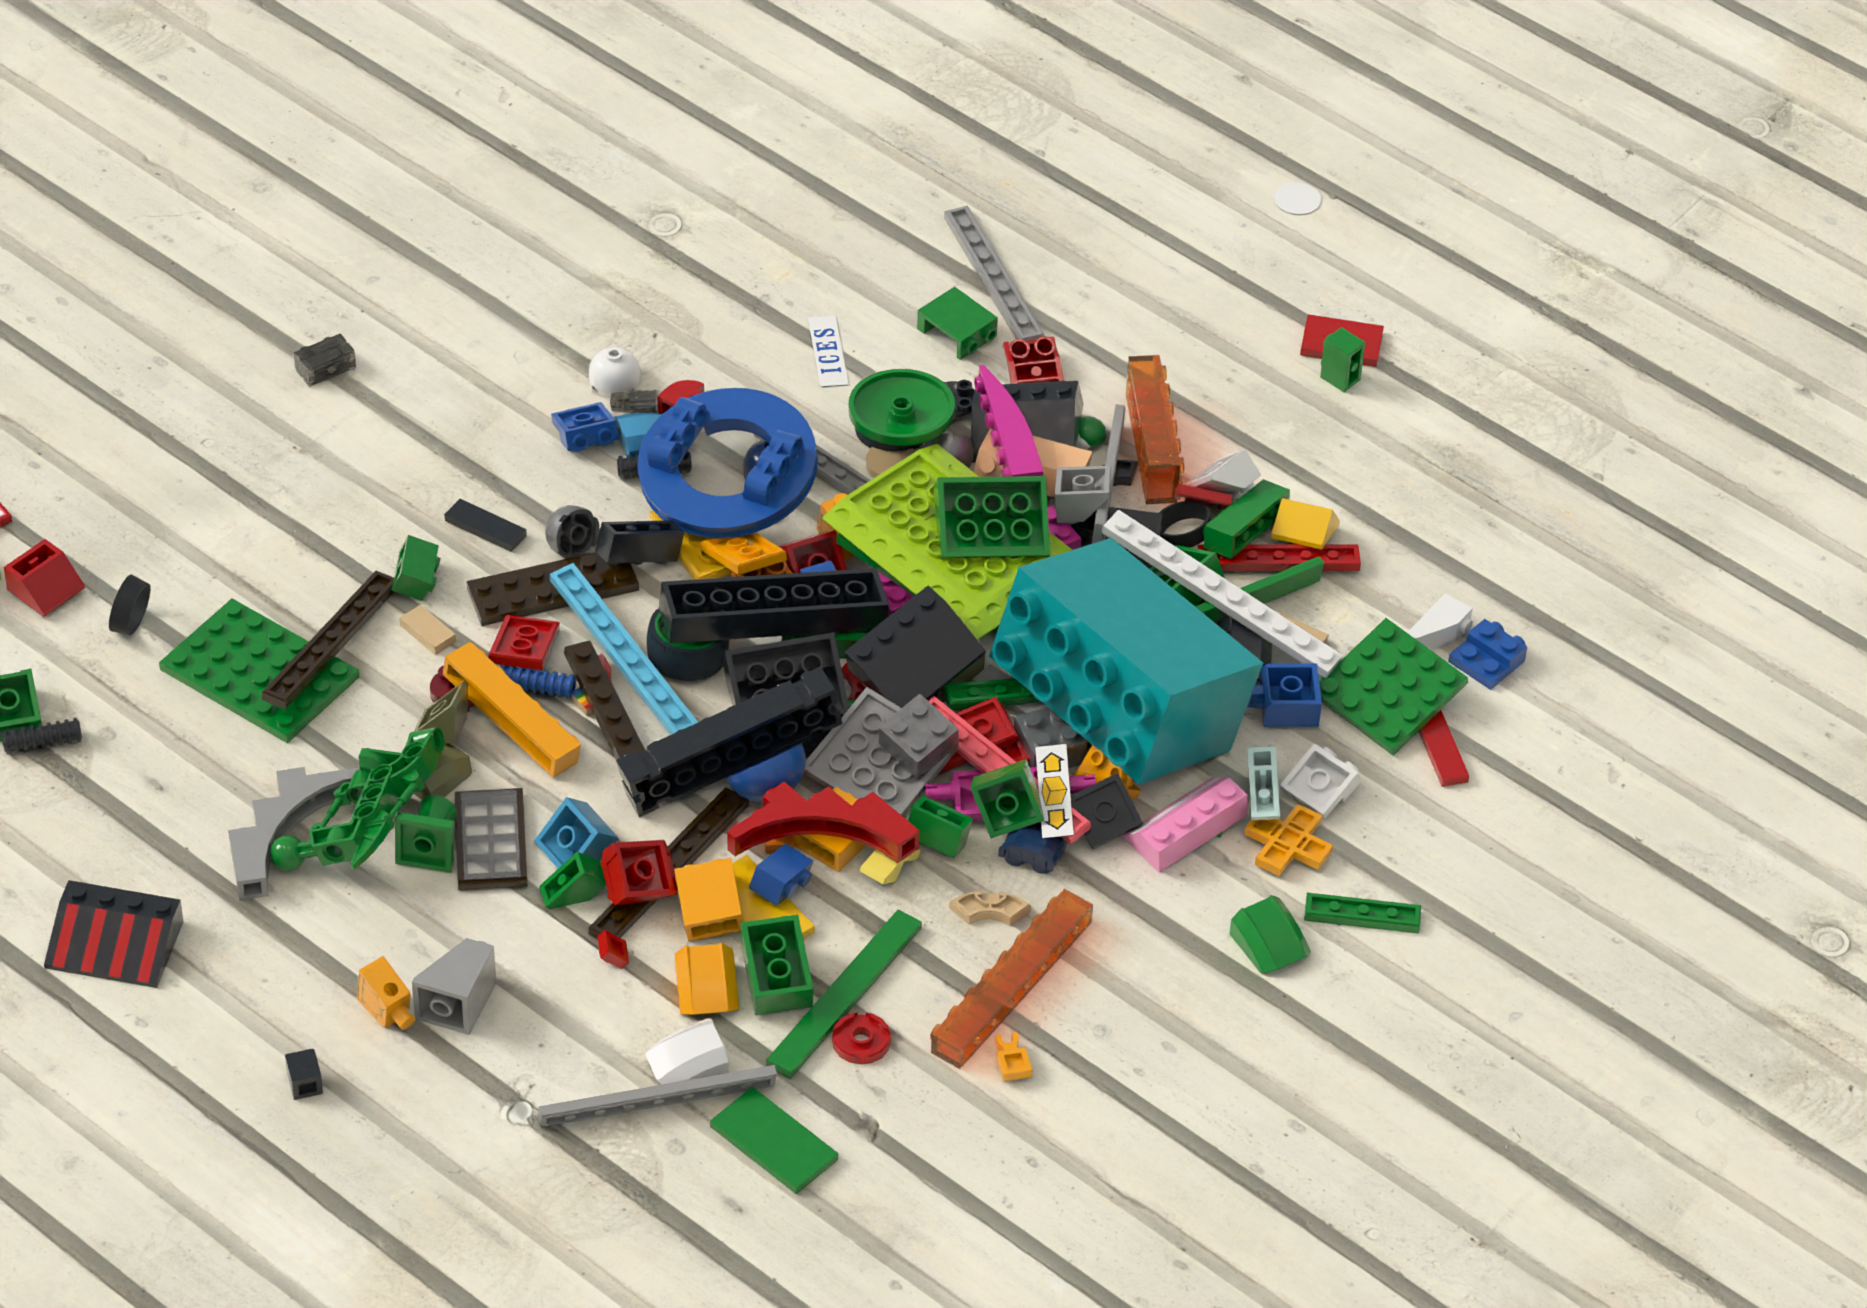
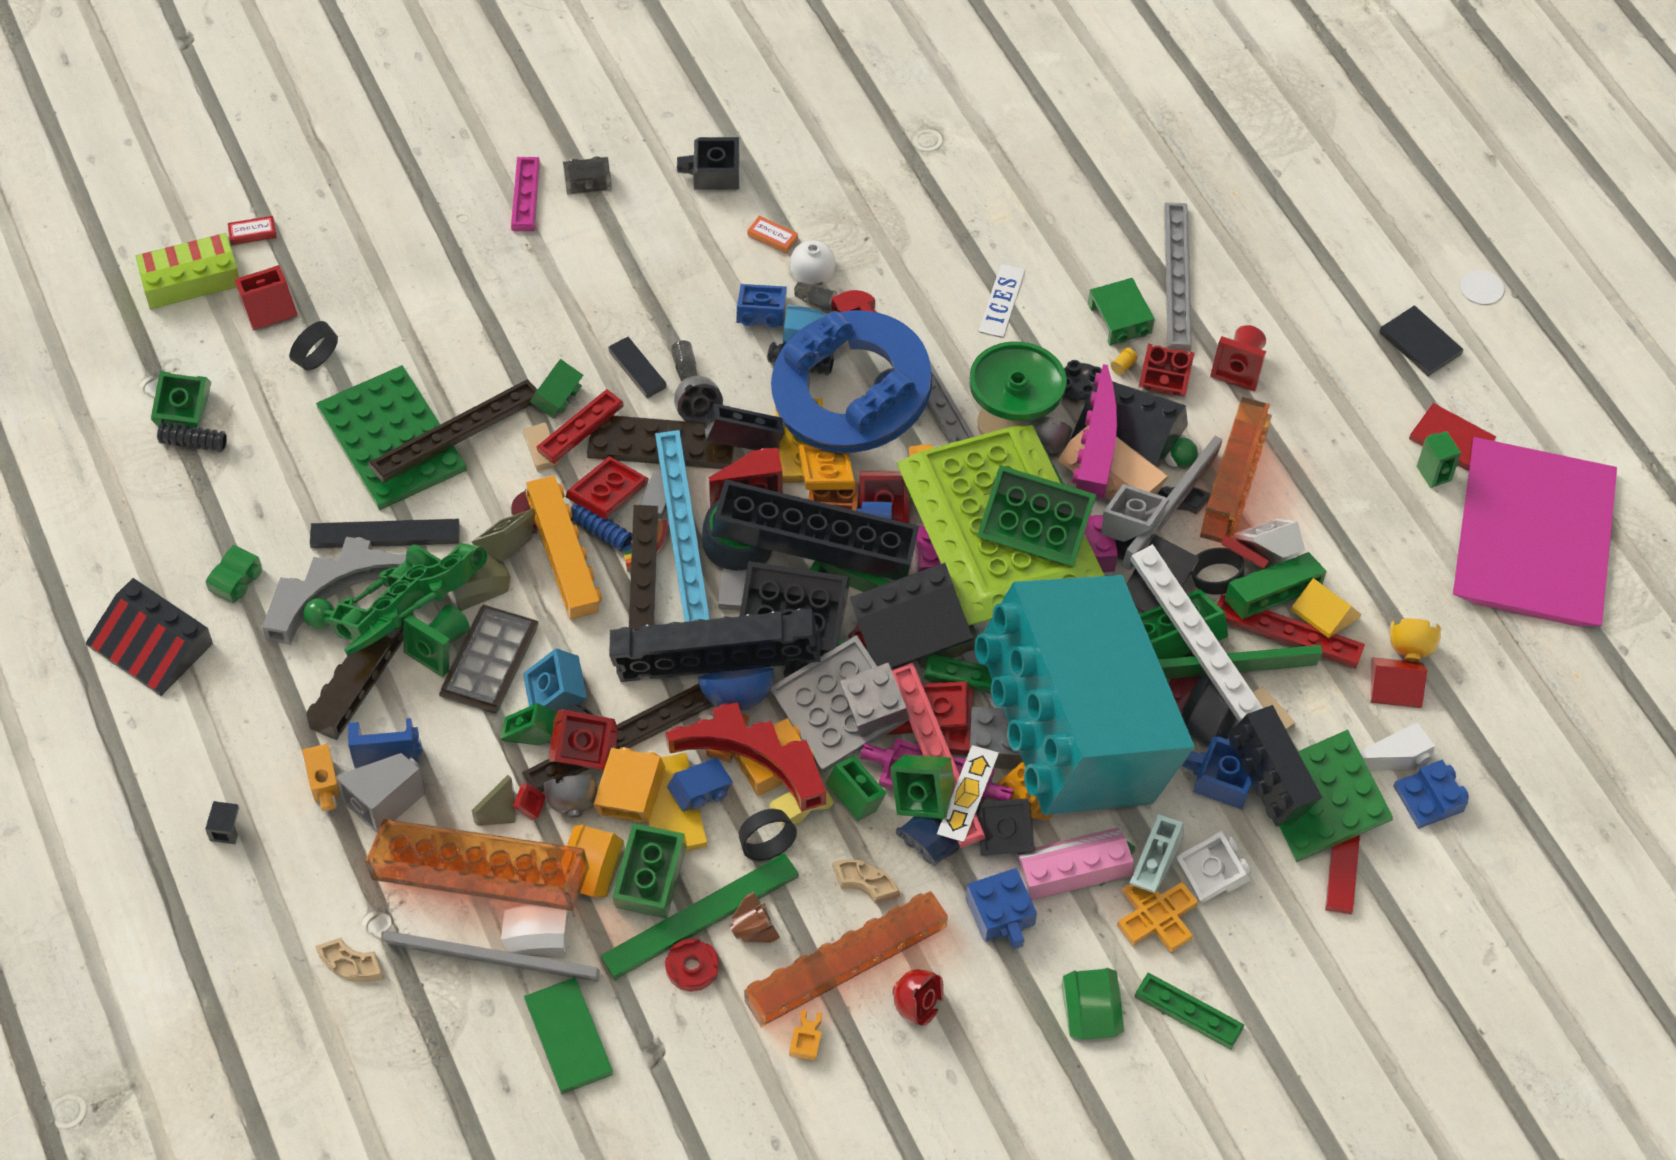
camera: 25 degrees right, 10 degrees up
(170, 847) = (234, 573): none -> green brick
(265, 398) = (525, 194): none -> dark pink tile
(314, 759) = (386, 532): none -> black tile
(360, 909) = (351, 685): none -> dark brown brick
(422, 950) = (375, 747): none -> blue panel
(457, 307) = (713, 163): none -> black hinge
(462, 595) = (580, 426): none -> red tile
(509, 1155) = (349, 963): none -> tan tile
(533, 502) = (684, 359): none -> clear smoke hinge
(555, 359) = (772, 234): none -> tile
(574, 630) = (654, 493): none -> light grey tile
(581, 965) = (496, 806): none -> olive slope
(600, 1014) = (478, 864): none -> clear orange brick
(654, 927) = (571, 794): none -> flat silver cylinder
(678, 565) = (758, 469): none -> red slope
(706, 696) = (731, 589): none -> light grey tile
(888, 900) = (772, 847): none -> black tyre
(903, 977) = (752, 921): none -> dark orange brick
(988, 360) = (1124, 361): none -> yellow piece
(1100, 982) = (917, 995): none -> red cylinder
(1102, 328) = (1240, 359): none -> red plant
(1138, 882) = (1001, 907): none -> blue hinge
(1265, 263) = (1421, 340): none -> black tile
(1338, 665) = (1274, 765): none -> black brick
(1403, 522) = (1414, 638): none -> yellow cylinder
(1406, 569) = (1397, 682): none -> red slope
(1465, 399) = (1536, 533): none -> dark pink piece

